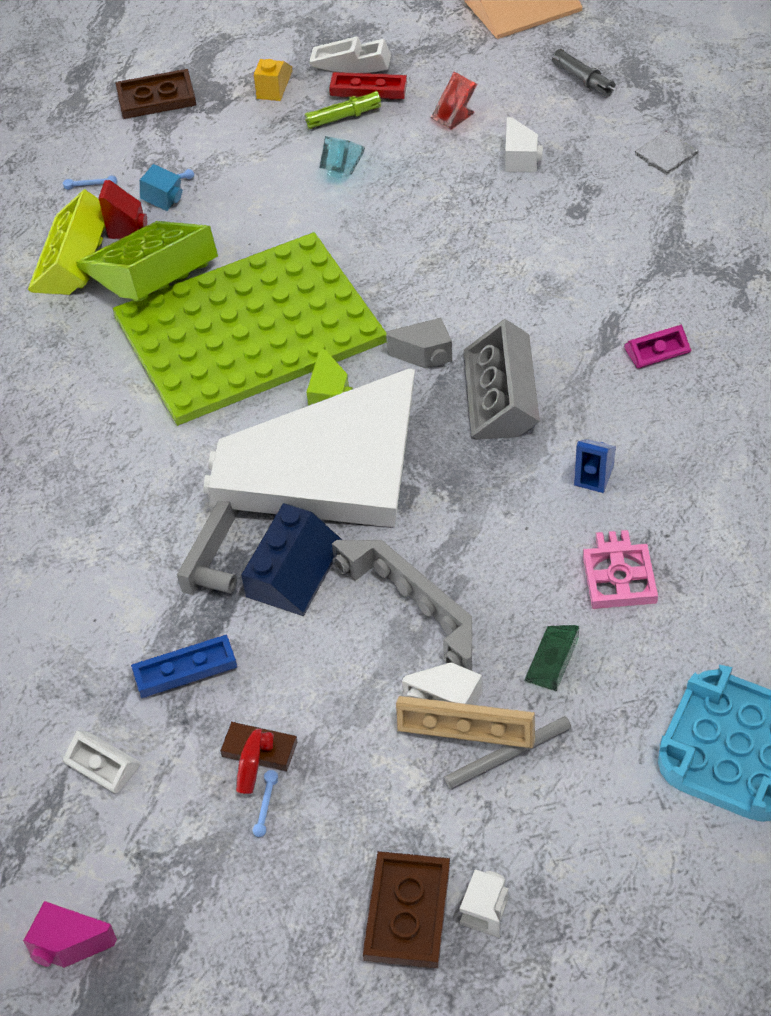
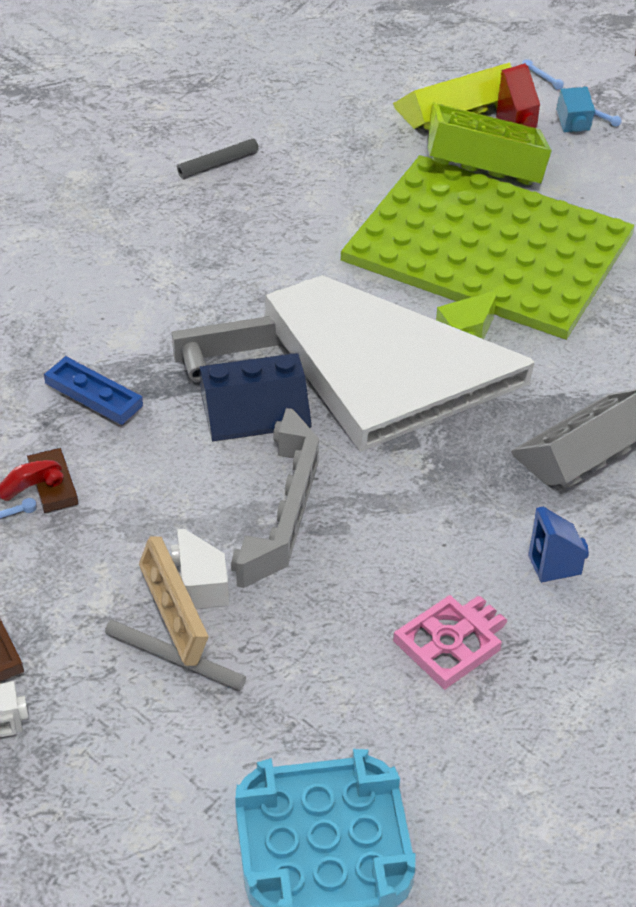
camera: 50 degrees right, 5 degrees down
(421, 343) = (580, 358): light grey slope -> none
(553, 656) = (308, 636): clear green slope -> none

